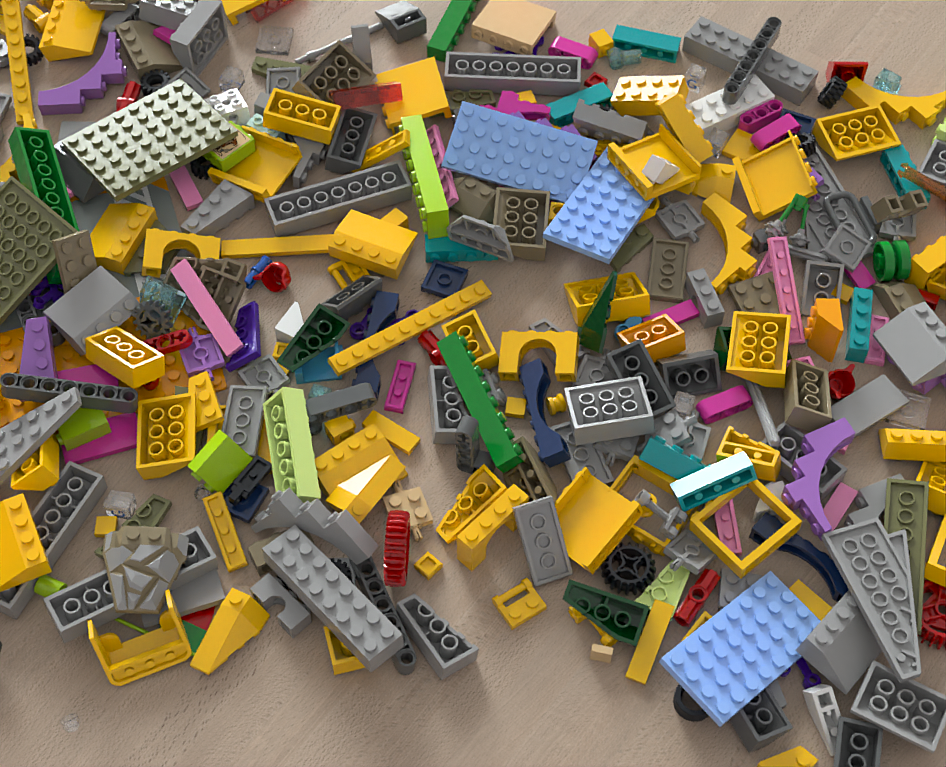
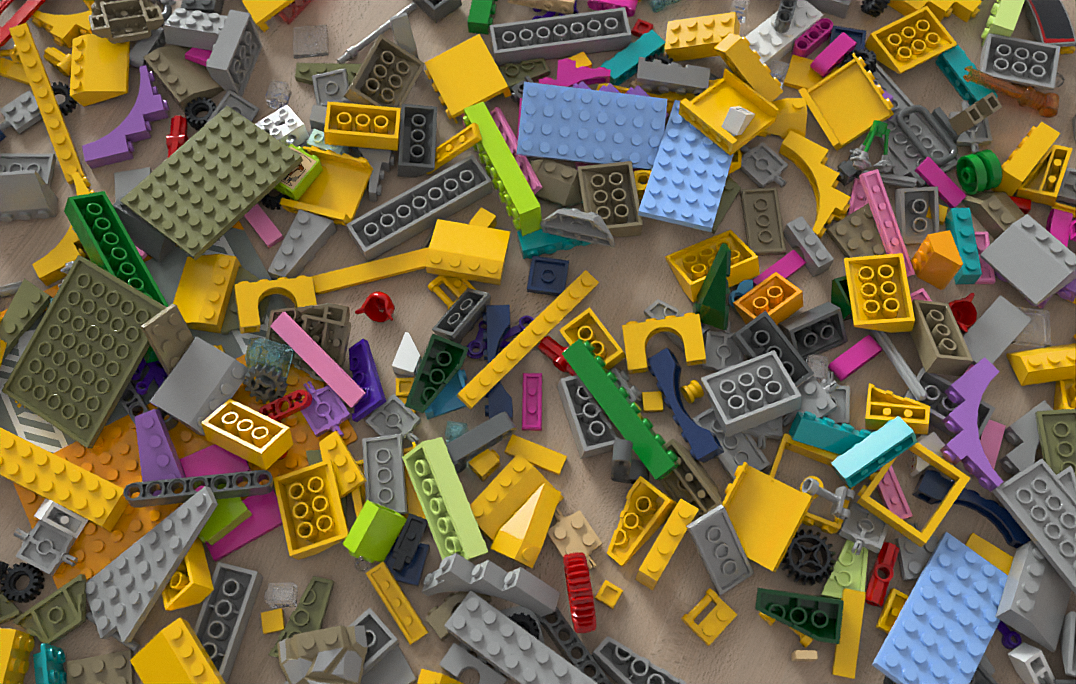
camera: 10 degrees left, 10 degrees up
(255, 270) = (357, 302): blue pin -> none
(367, 95) = (422, 89): clear red fence -> none
(846, 247) = (934, 167): light grey tile -> none

